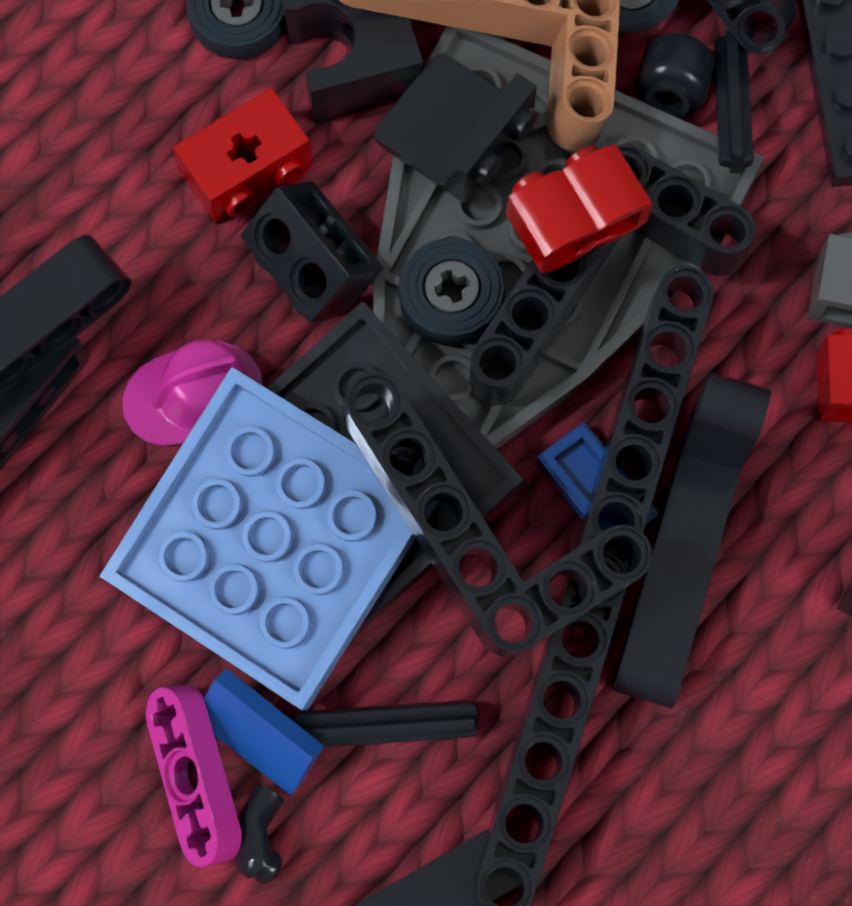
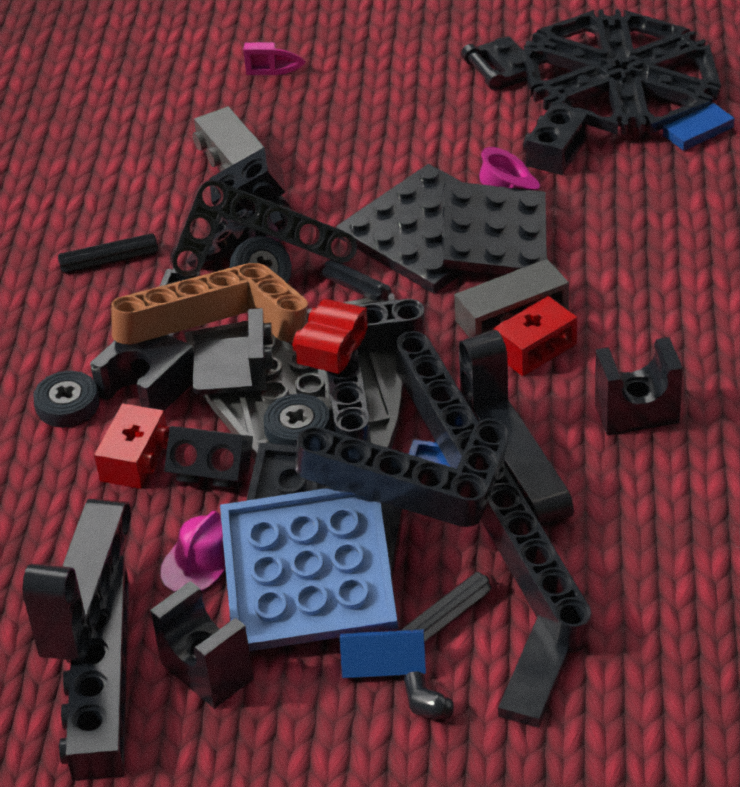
camera: 35 degrees left, 30 degrees down
(46, 520) = (196, 651): none -> black piece
(177, 717) = (385, 691): dark pink beam -> none
(675, 74) = (318, 284): black head -> none

